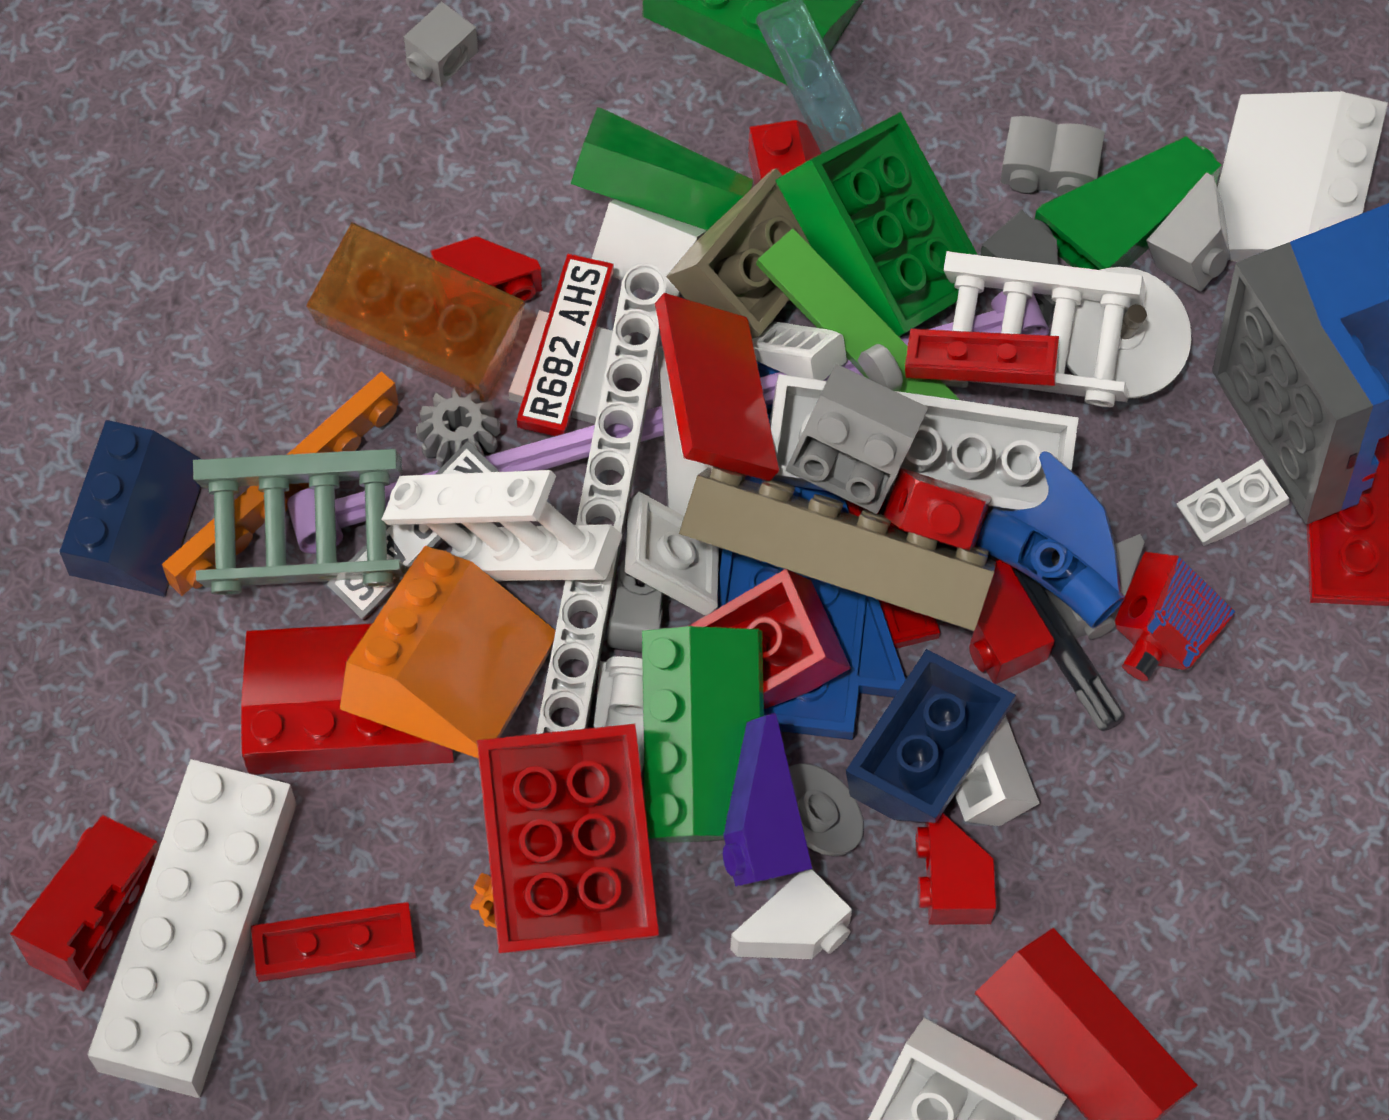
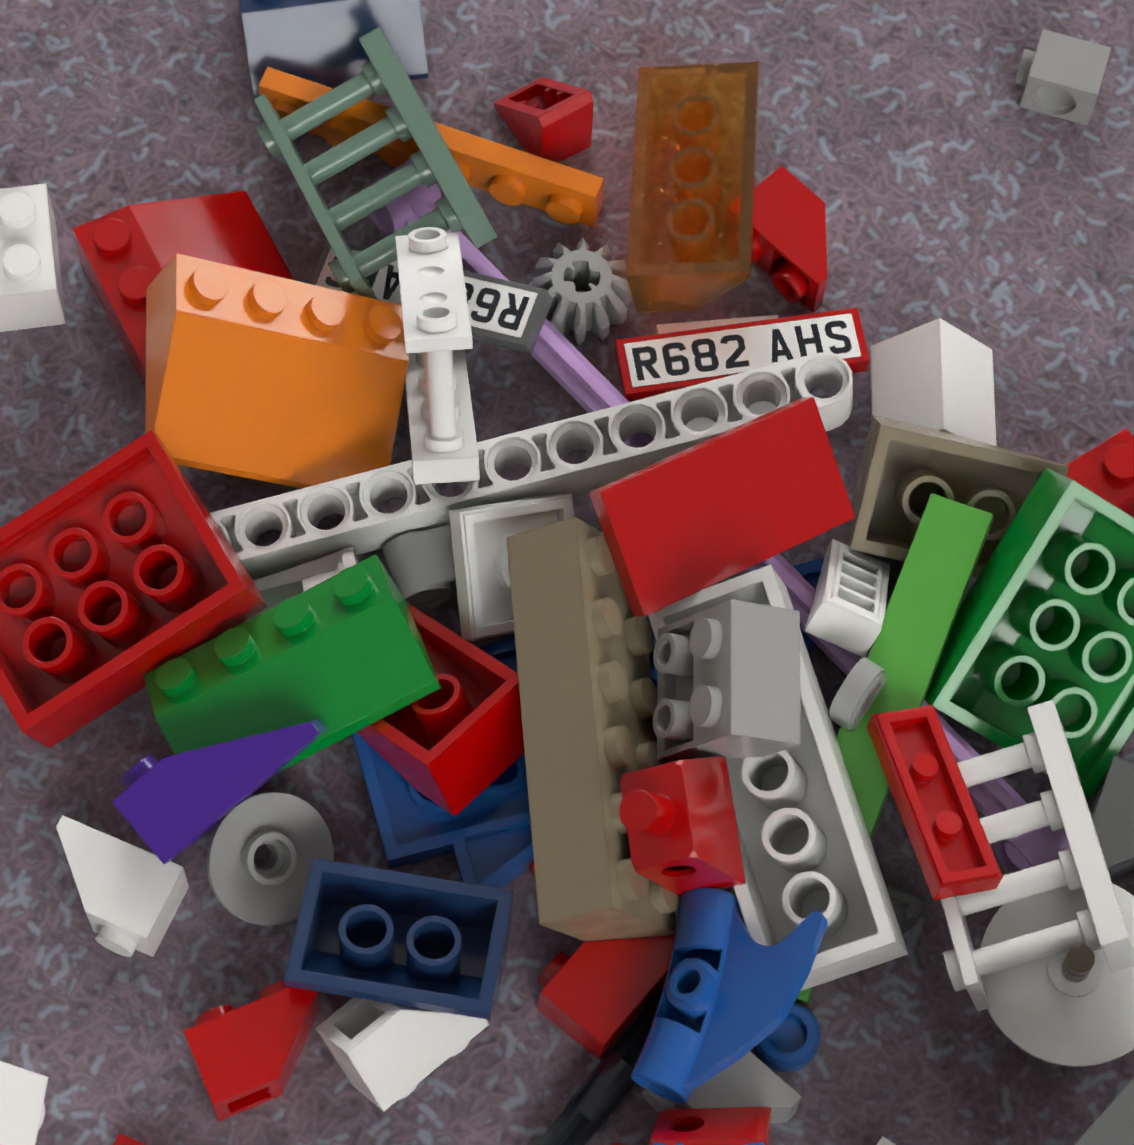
camera: 65 degrees right, 0 degrees up
(294, 393) = (549, 118): none -> red slope
(655, 173) = (1012, 348): green slope -> none

